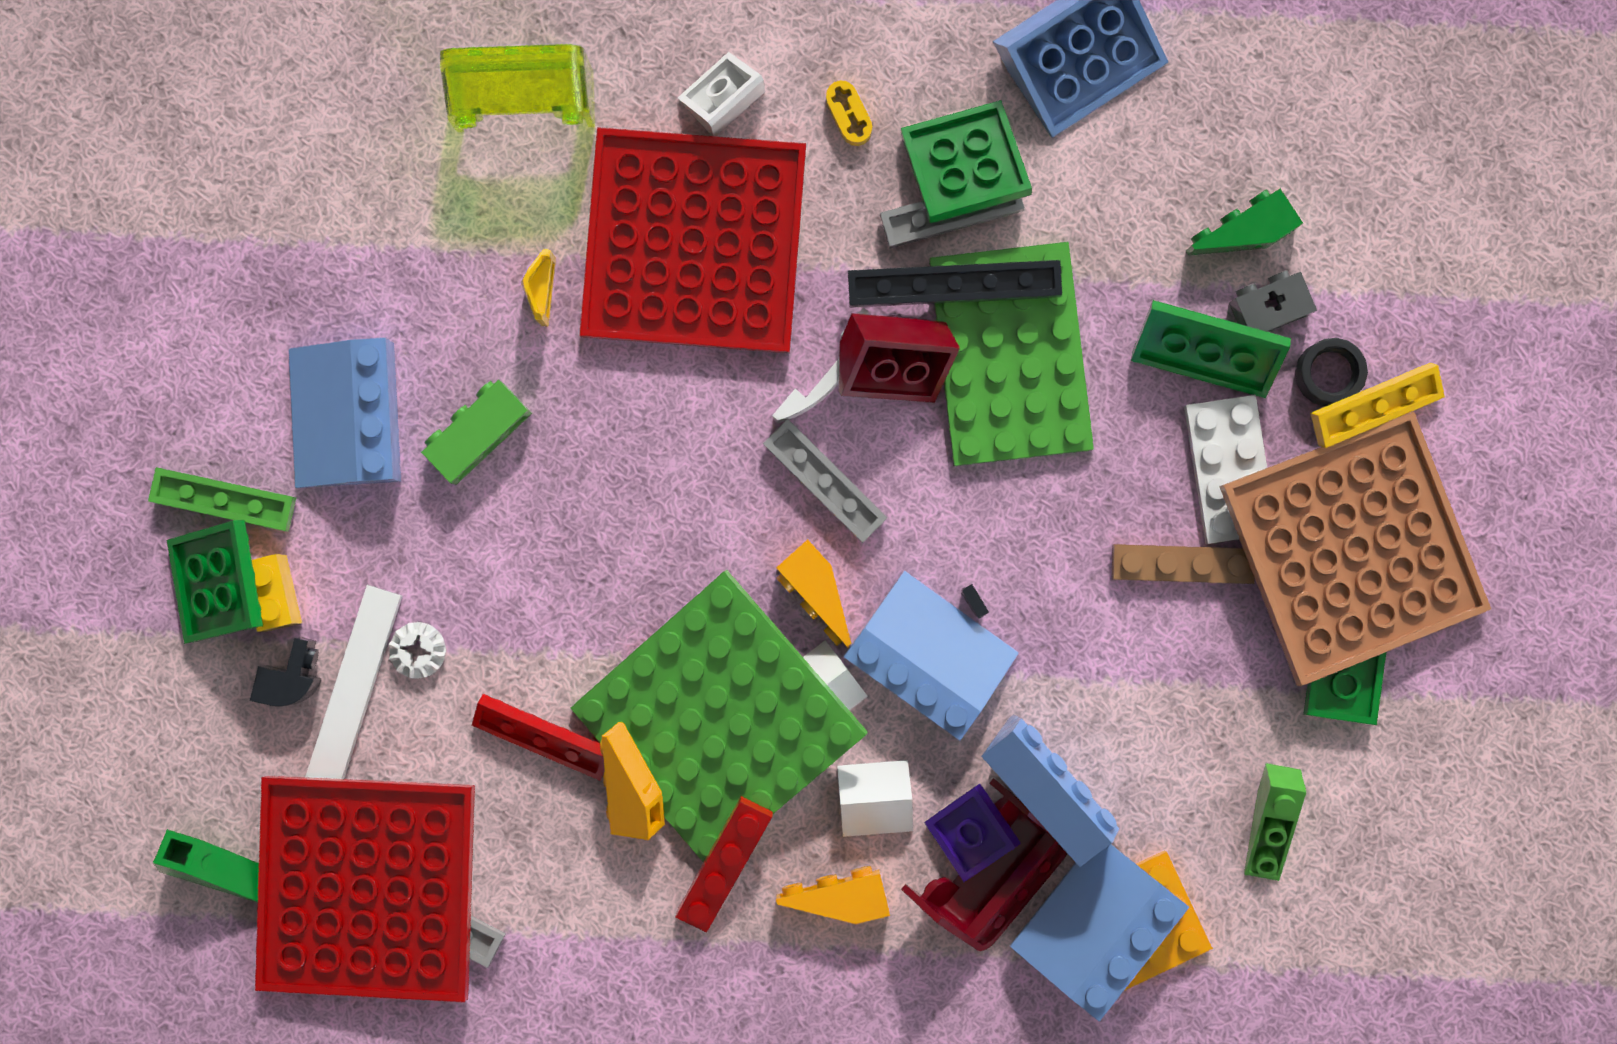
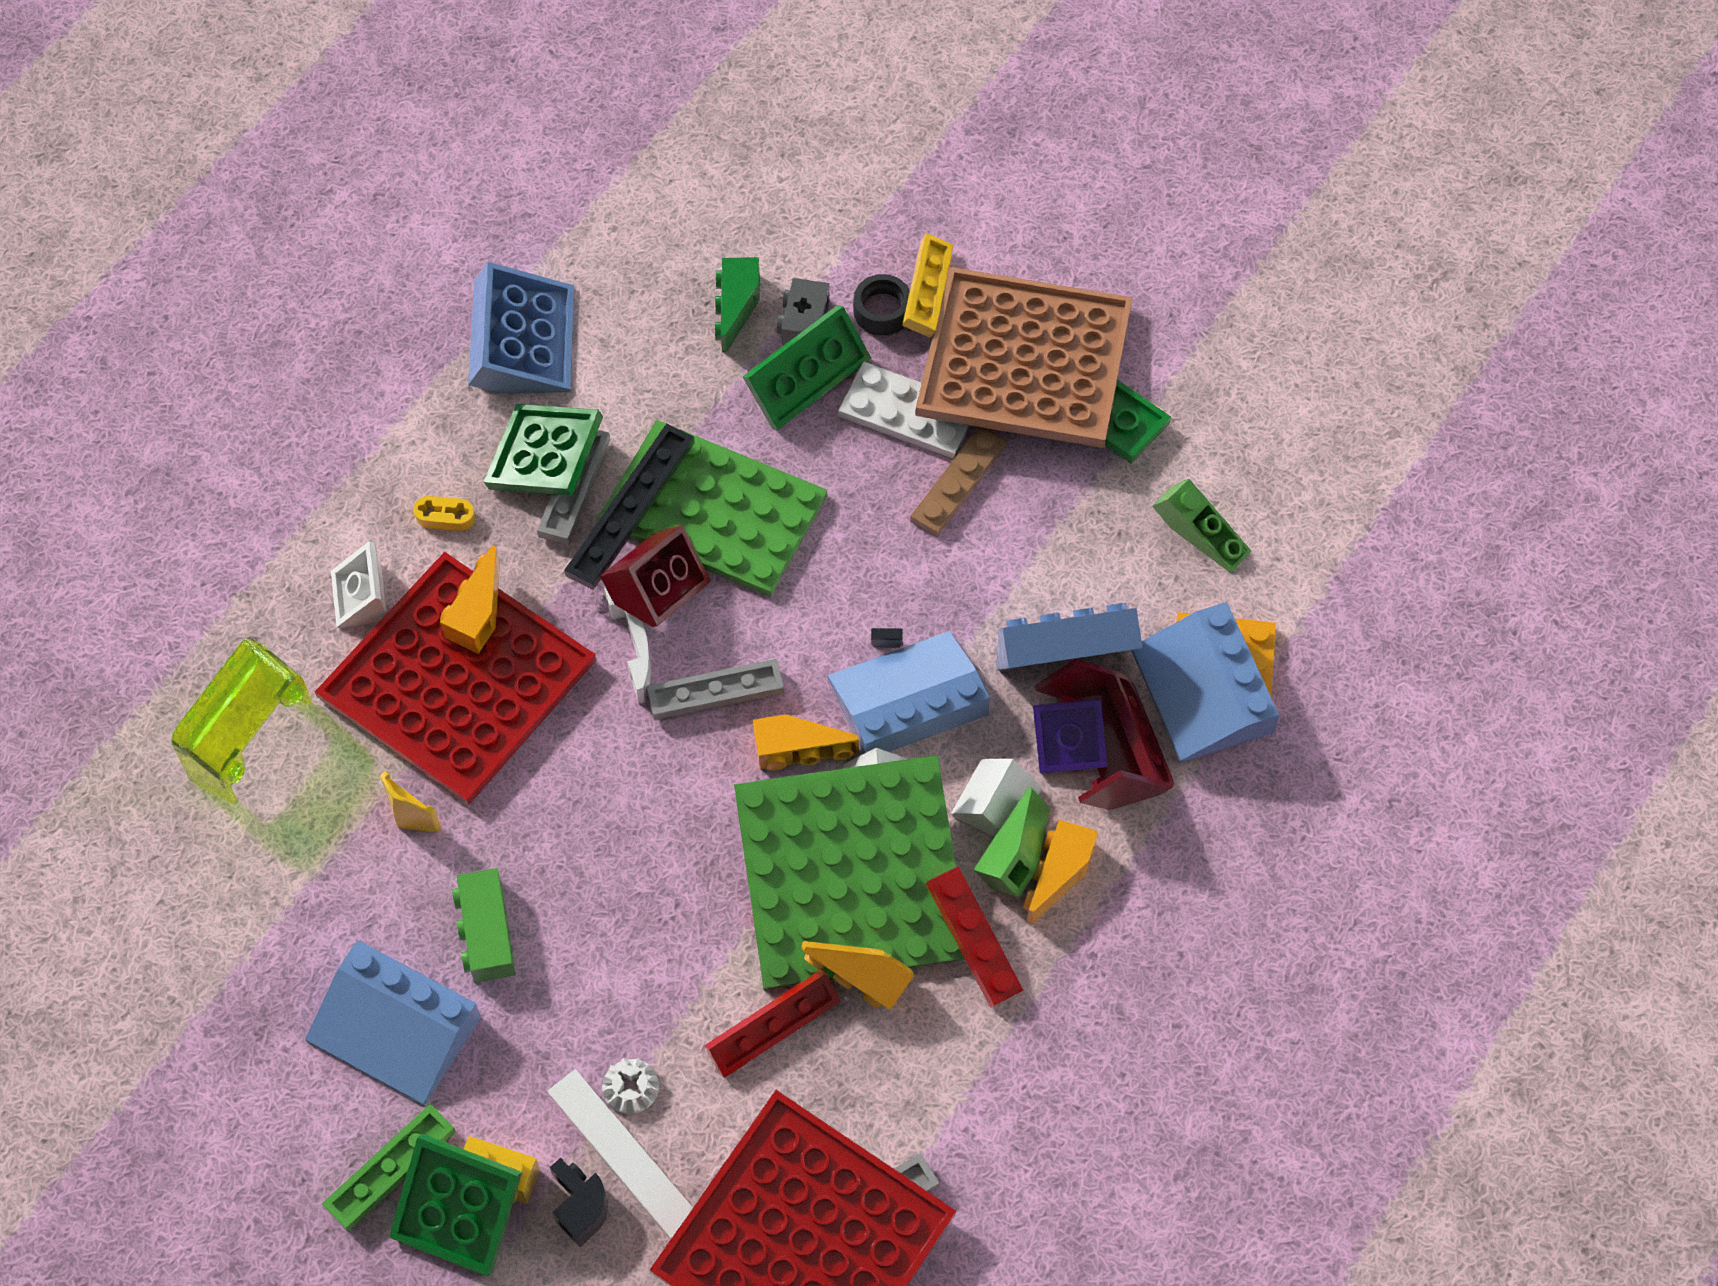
camera: 60 degrees left, 25 degrees down
(758, 217) = (474, 611): none -> light orange slope
(828, 851) = (1017, 847): none -> bright green slope

